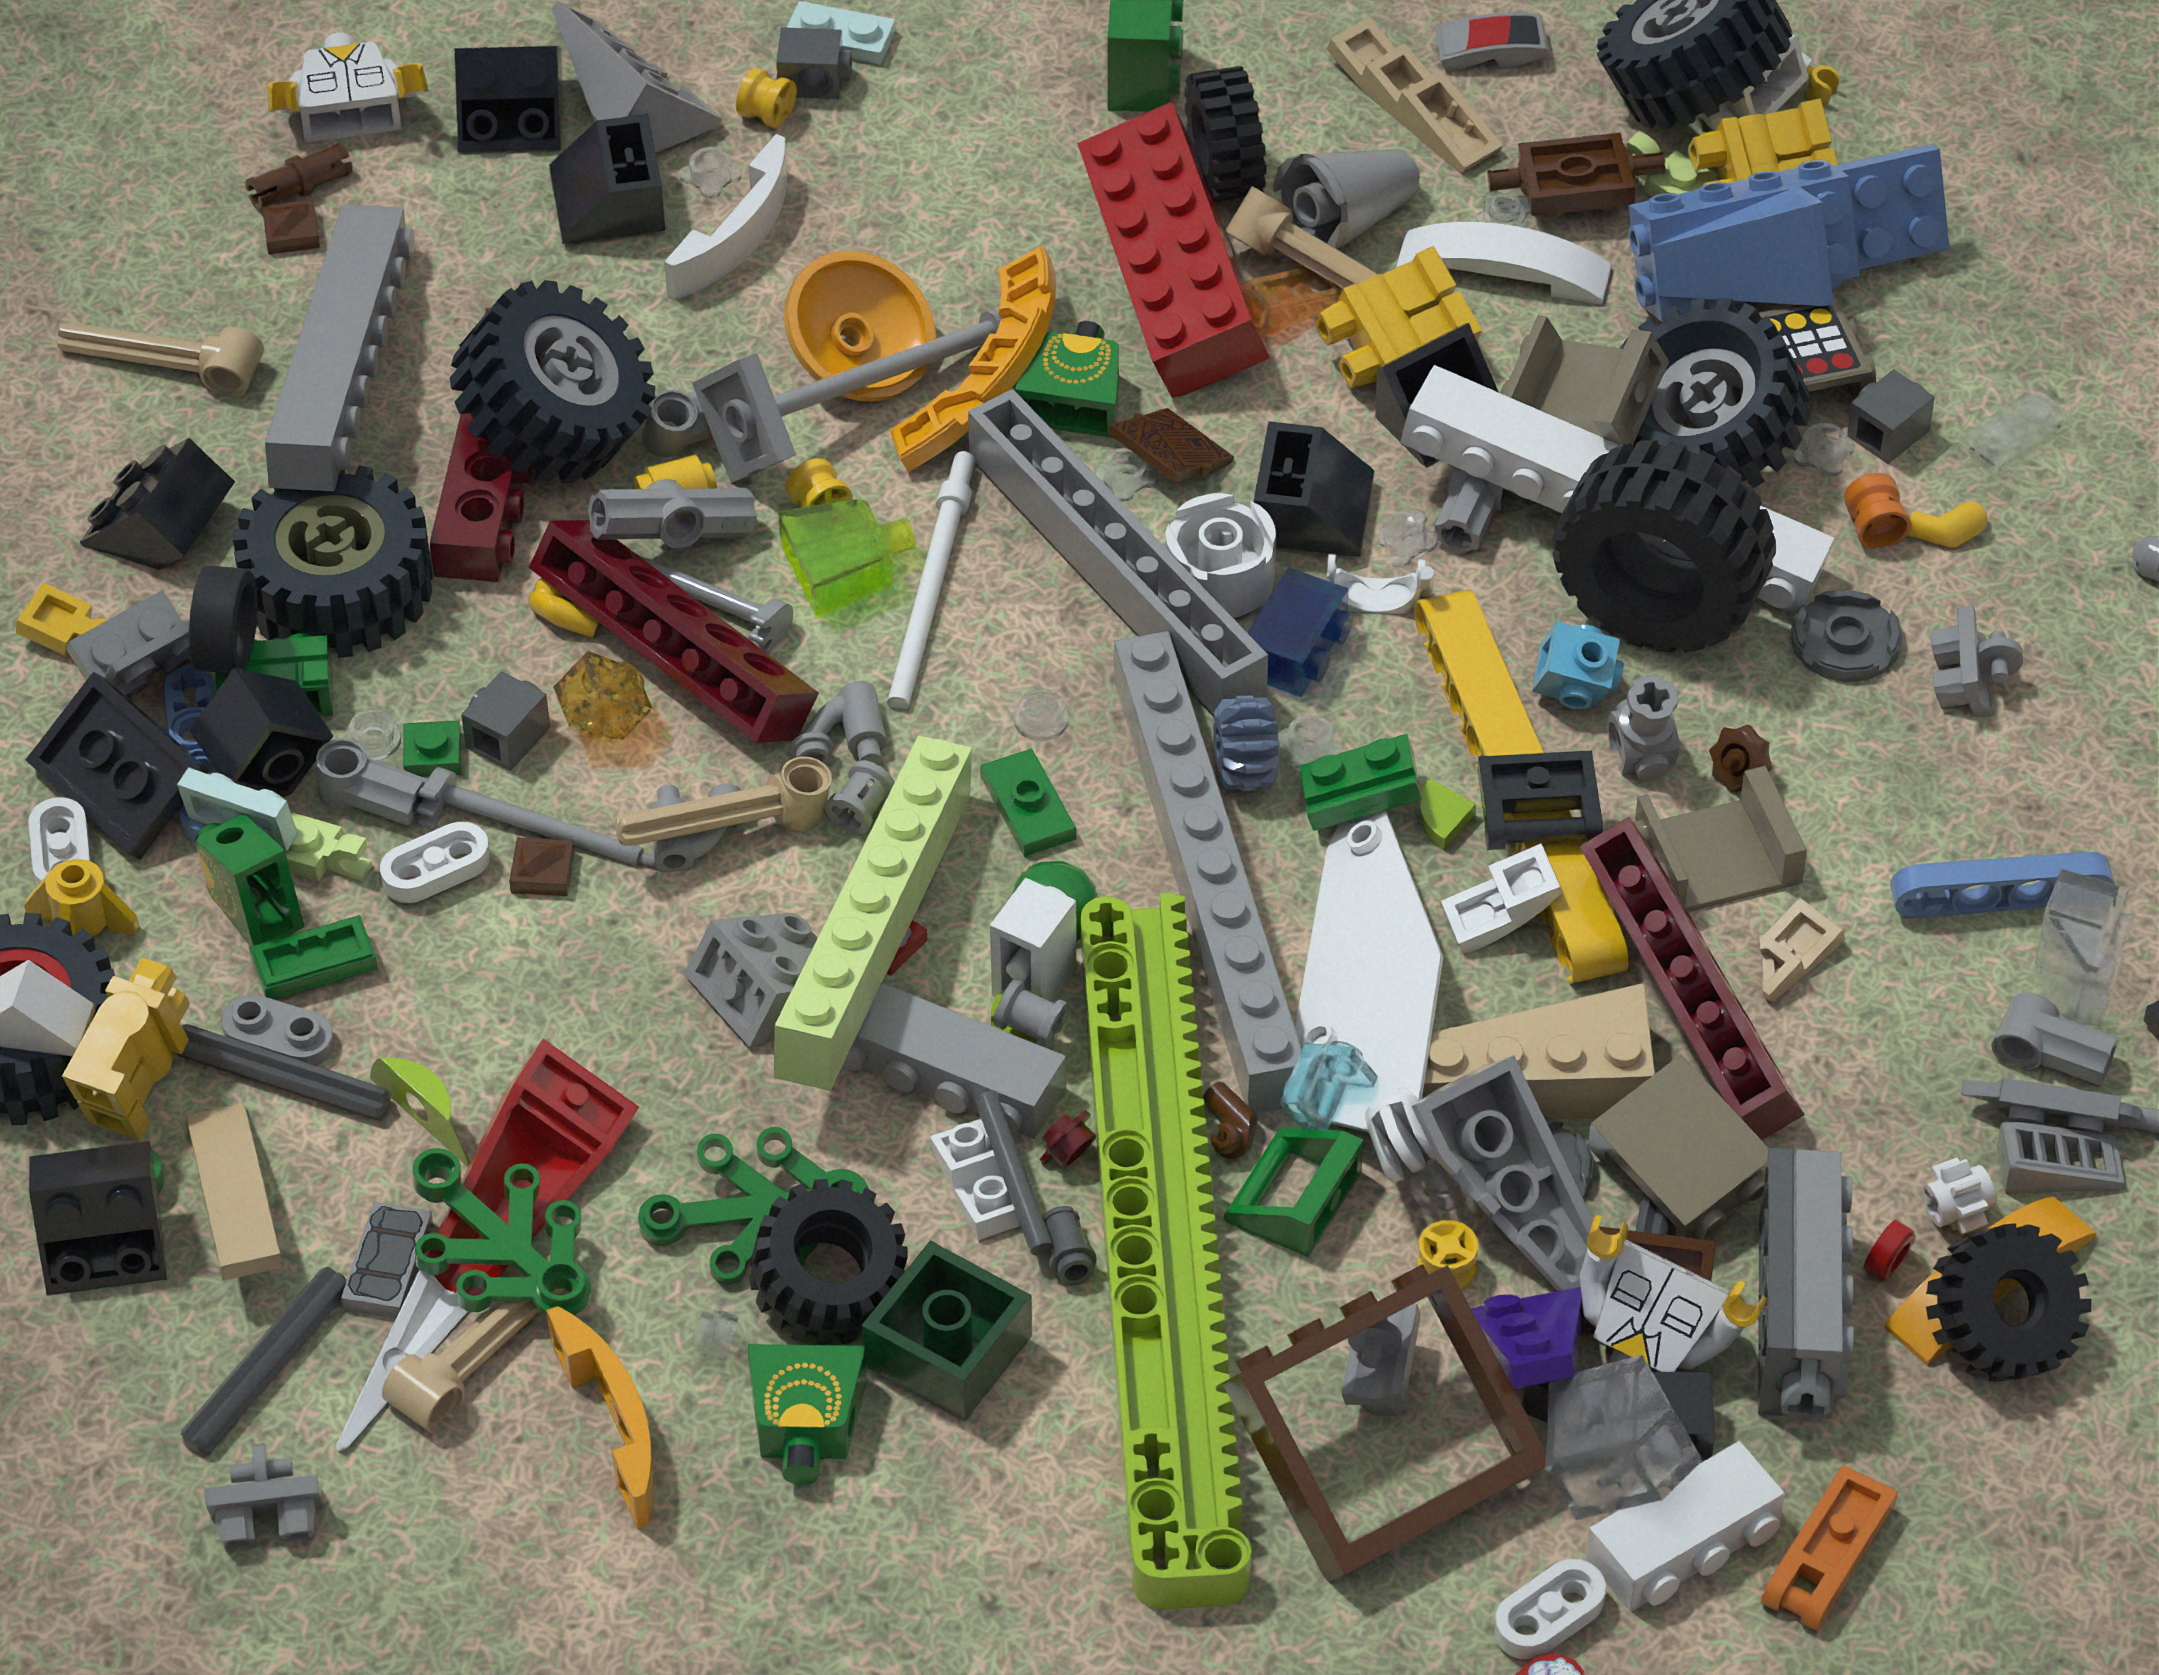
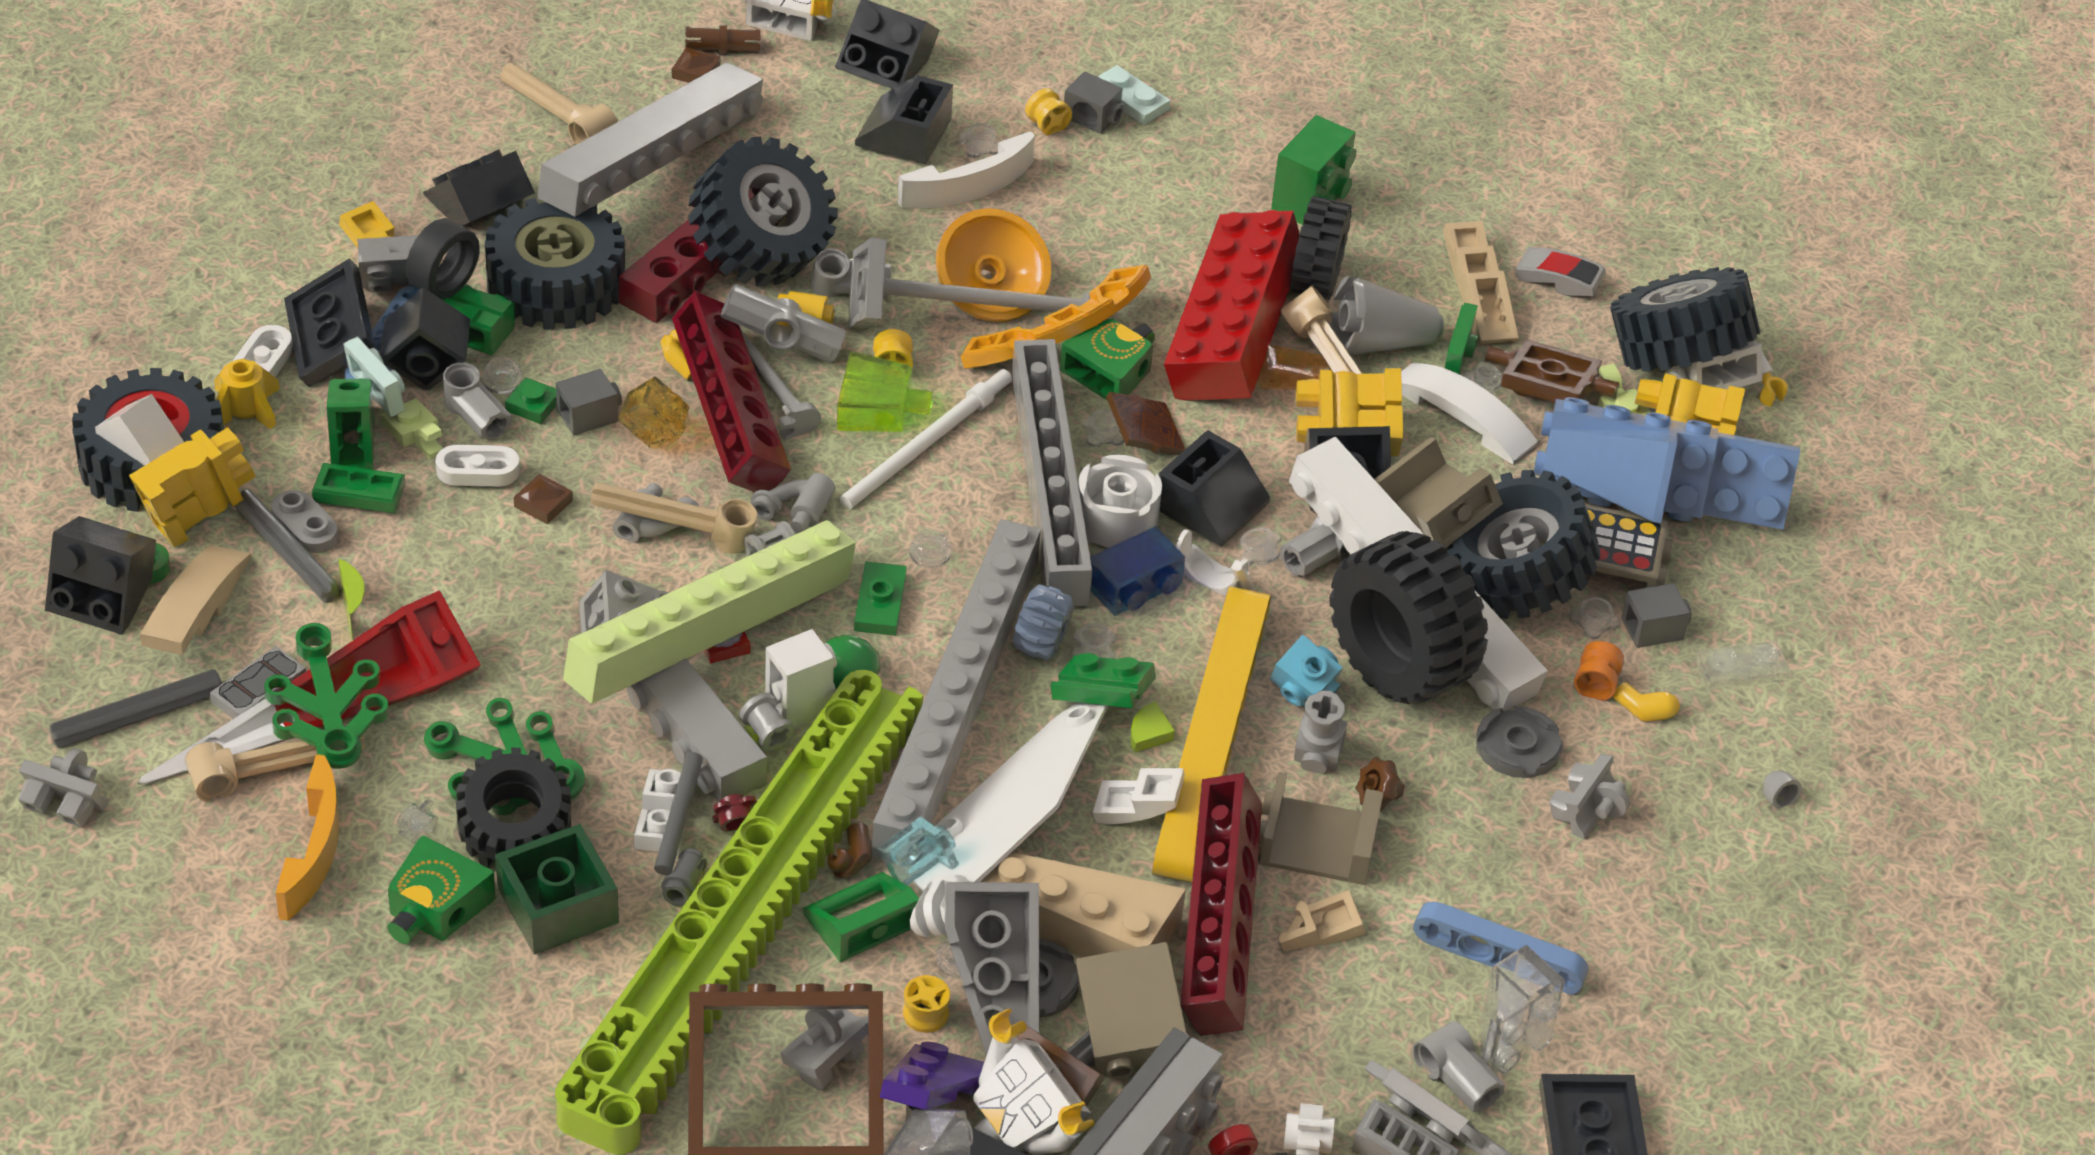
camera: 25 degrees right, 5 degrees down
(442, 790) = (517, 425): light grey piece -> none
(627, 85) = (966, 64): light grey wedge -> none
(1450, 177) = (1463, 340): none -> green plate
(1539, 785) = (1209, 731): black plate -> none

